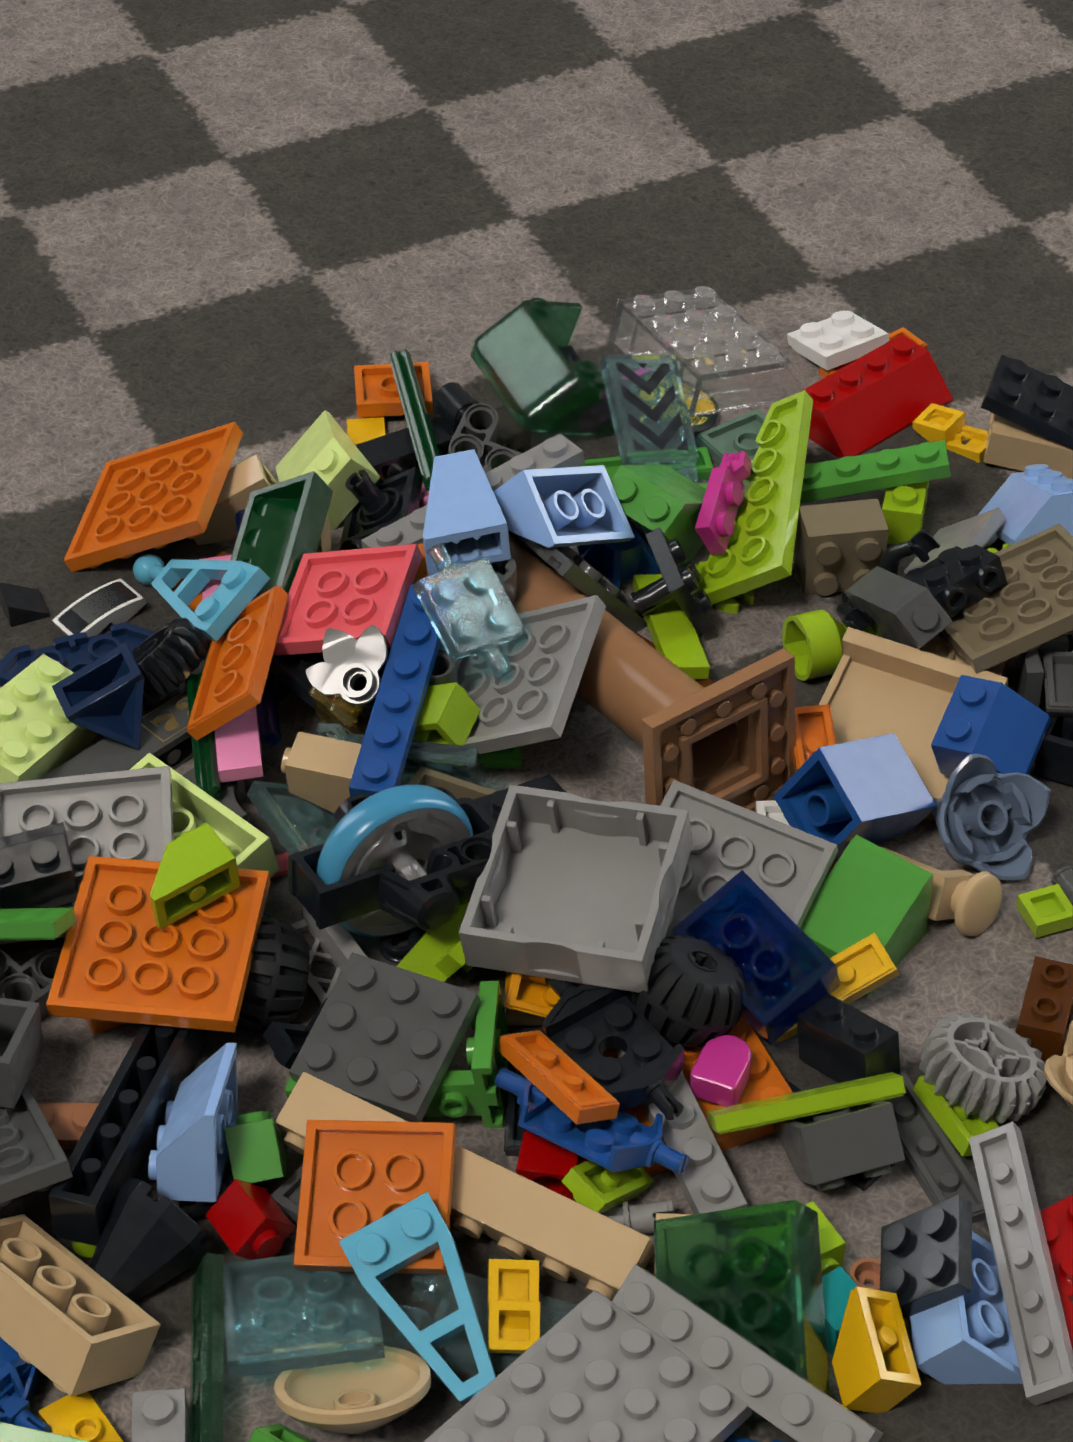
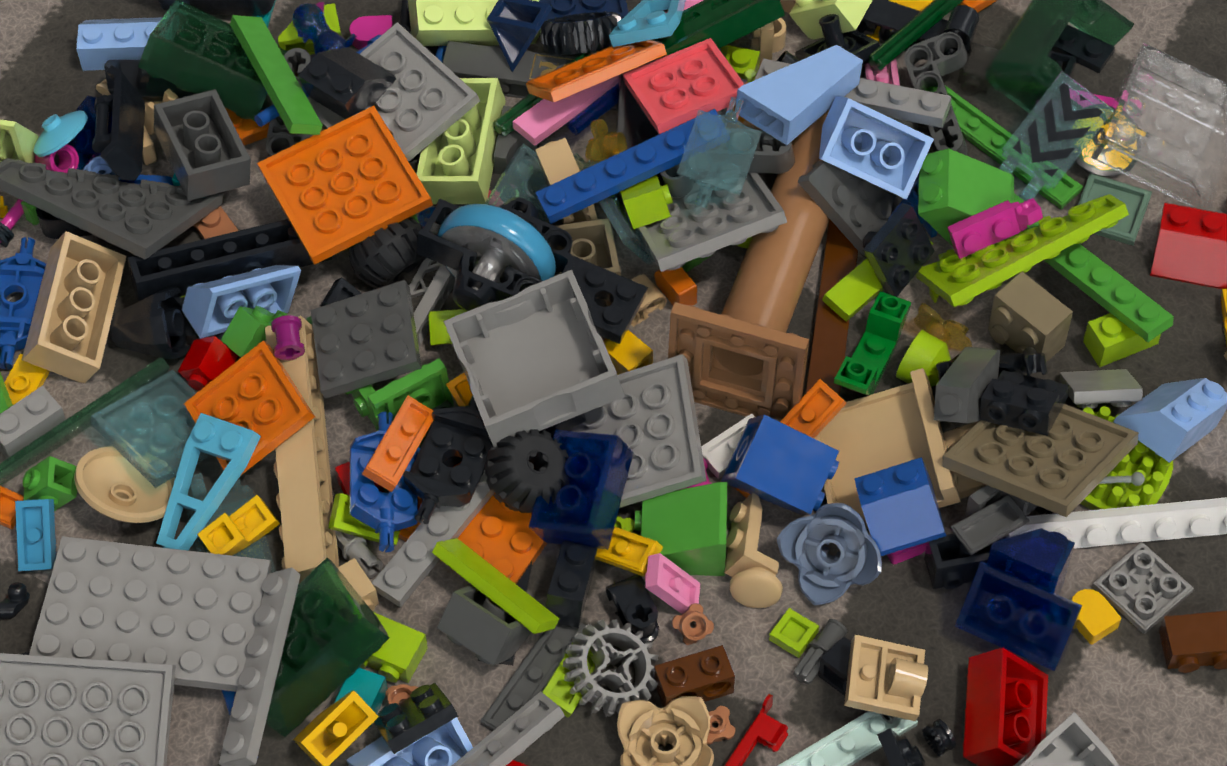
camera: 55 degrees right, 15 degrees up
(192, 874) = (385, 162): lime slope -> none
(328, 1092) = (287, 337): none -> magenta bush
(346, 661) = (628, 125): plate -> none
(539, 764) = (677, 286): none -> orange piece
(721, 1070) = (494, 527): dark pink piece -> none
(740, 644) = (876, 346): none -> green slope
(773, 611) = (948, 331): none -> clear yellow animal
(912, 1009) = (635, 606): none -> black piece
(920, 964) = (671, 583): none -> bright pink plate
(973, 981) = (702, 627): none -> nougat plate

